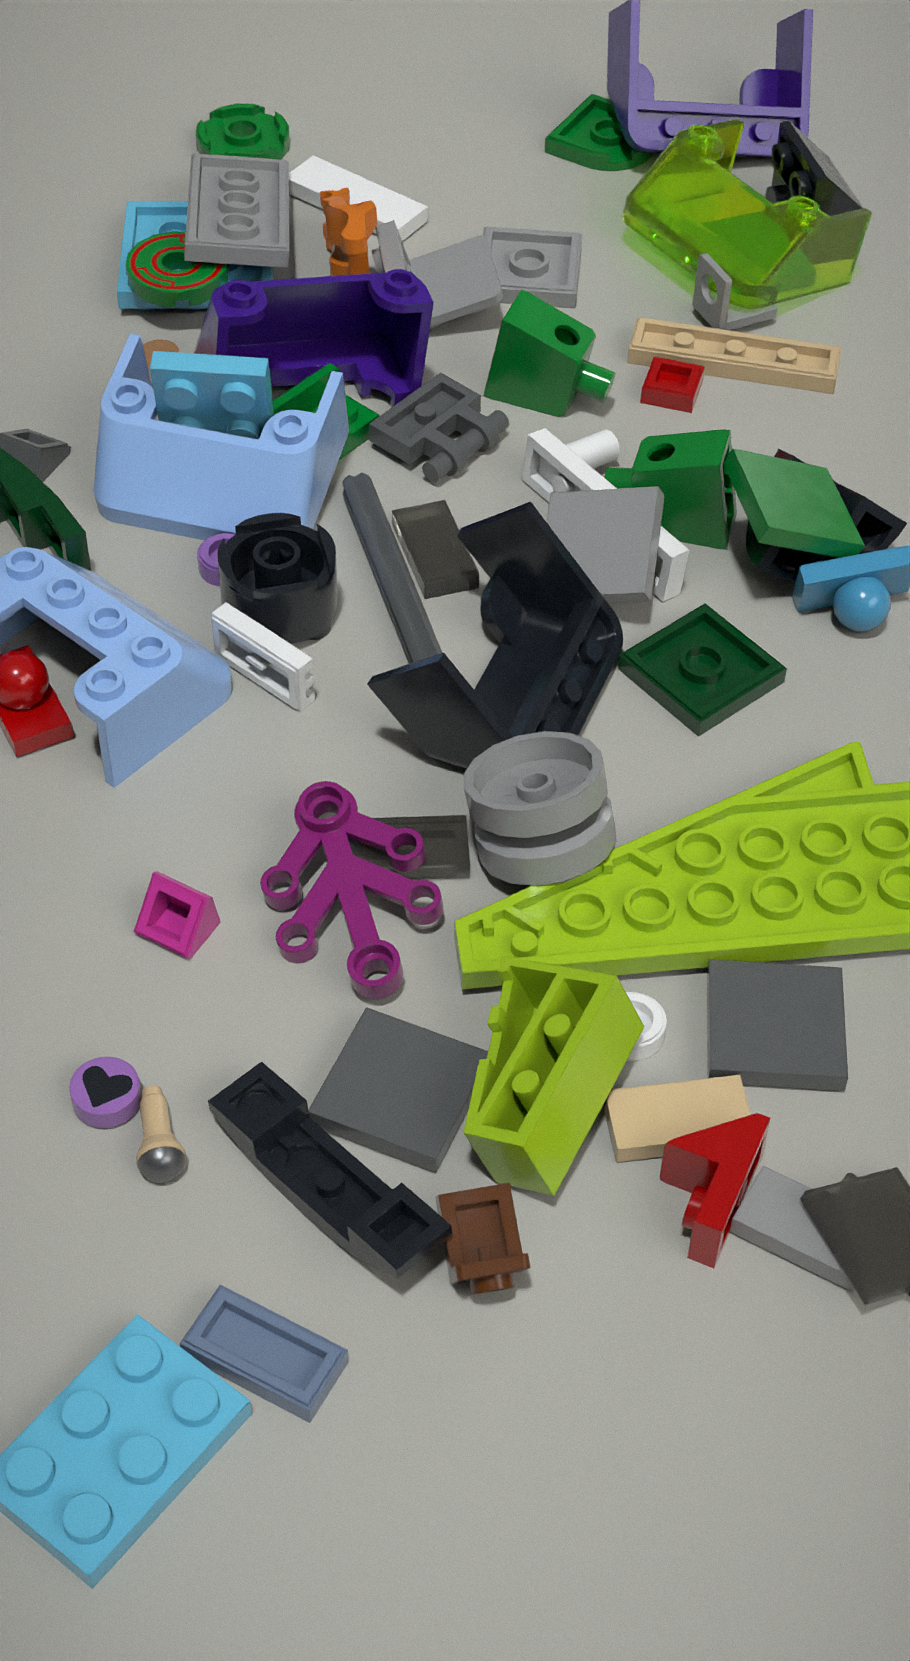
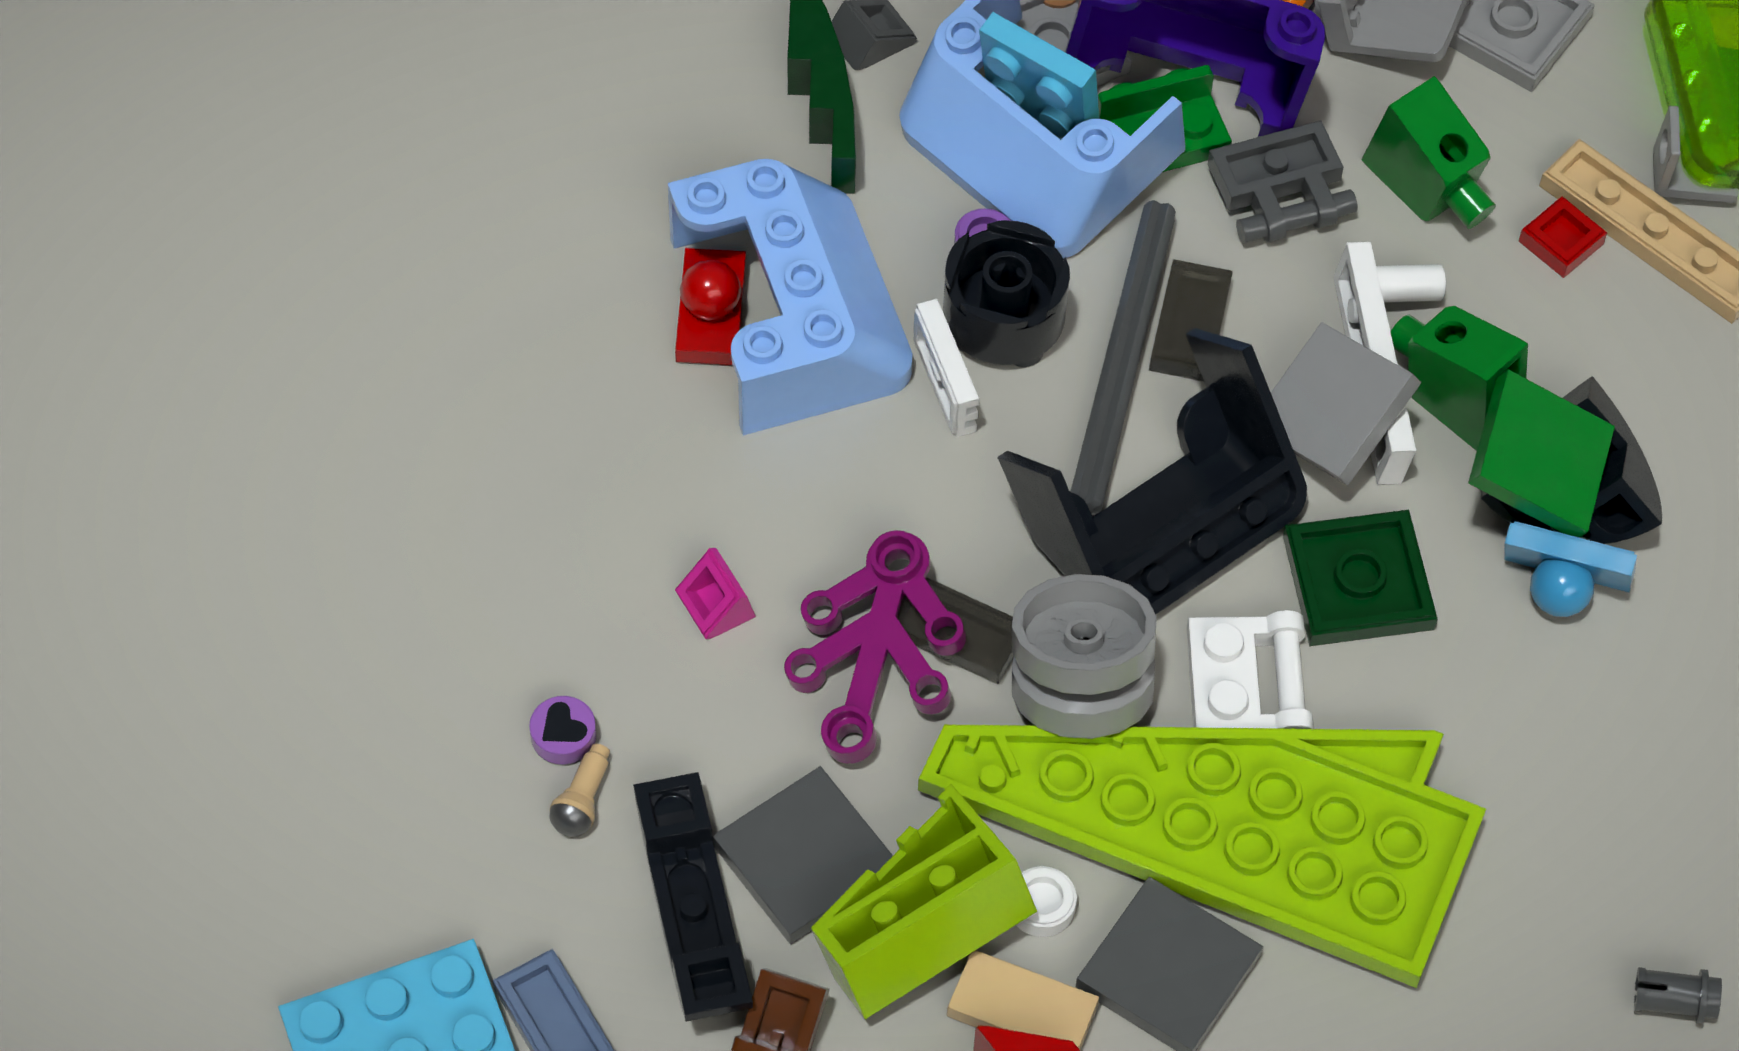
camera: 30 degrees right, 10 degrees up
(654, 784) = (1226, 671): none -> white plate

